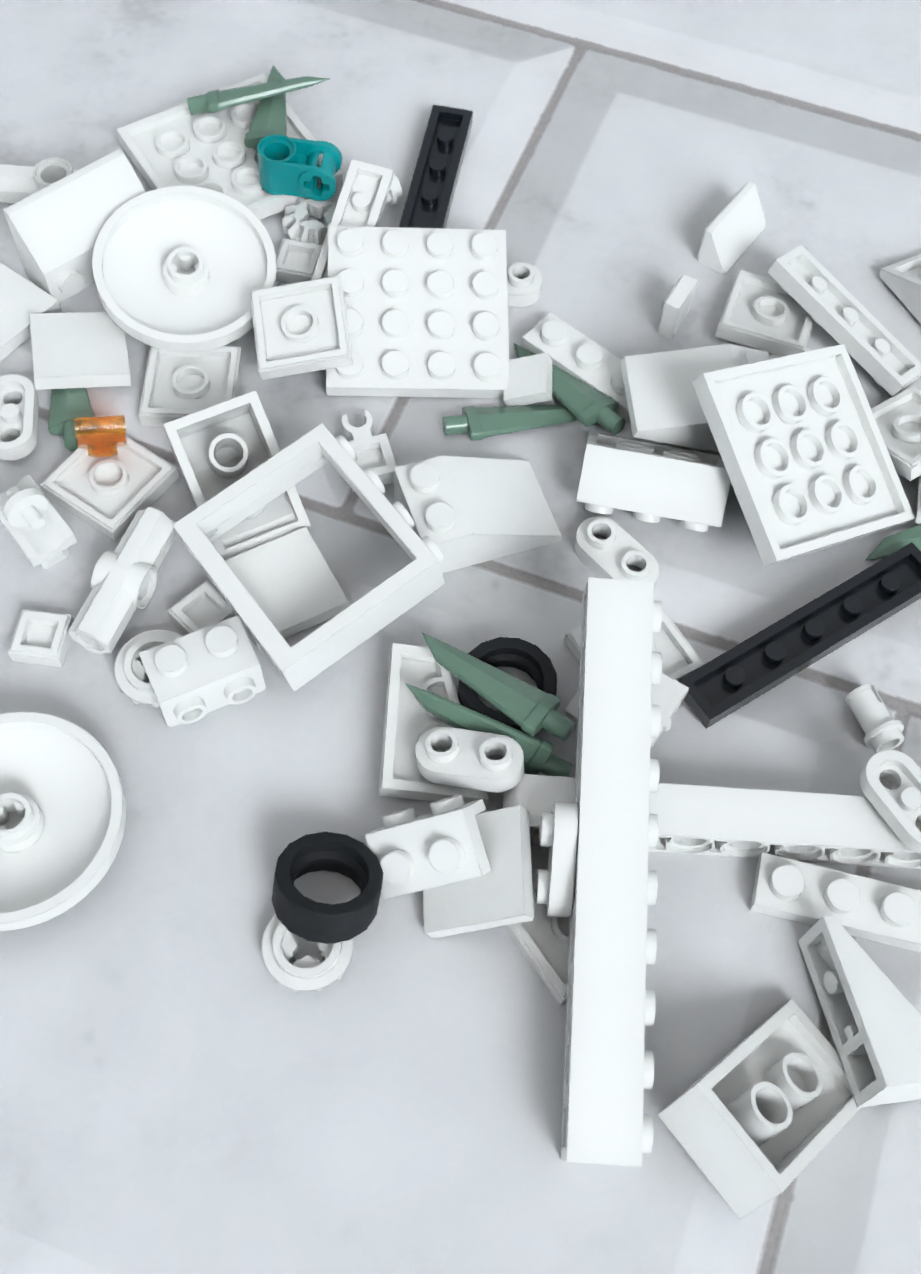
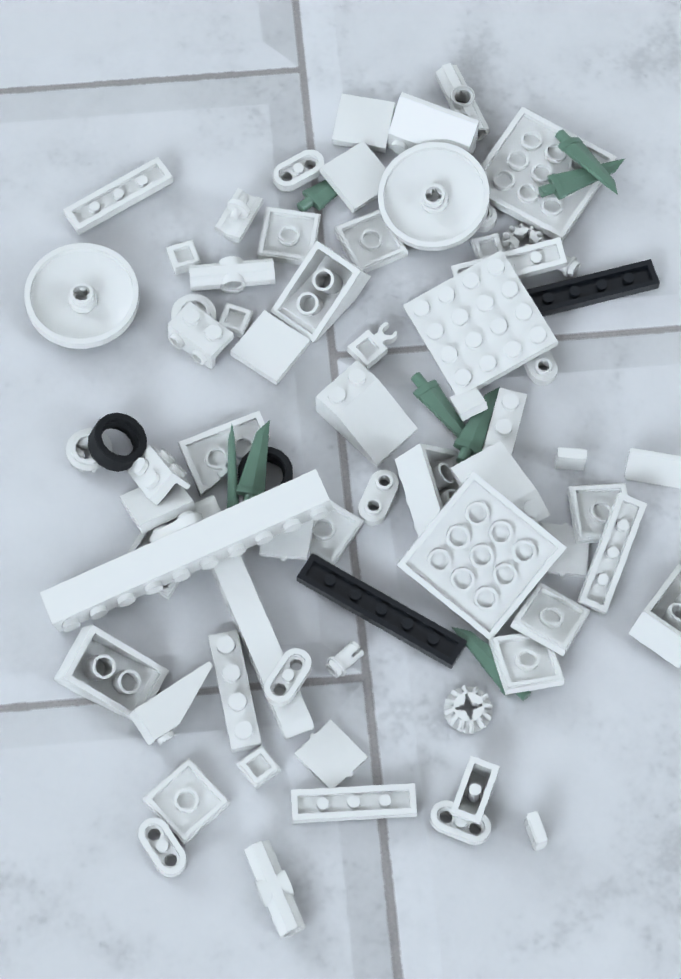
camera: 65 degrees right, 5 degrees up
(101, 434) = (303, 216): clear orange plate -> none
(293, 167) = (543, 217): teal piece -> none
(300, 327) = (426, 272): white tile -> none
(356, 622) = (267, 291): white window -> none
(467, 759) = (209, 469): white plate -> none

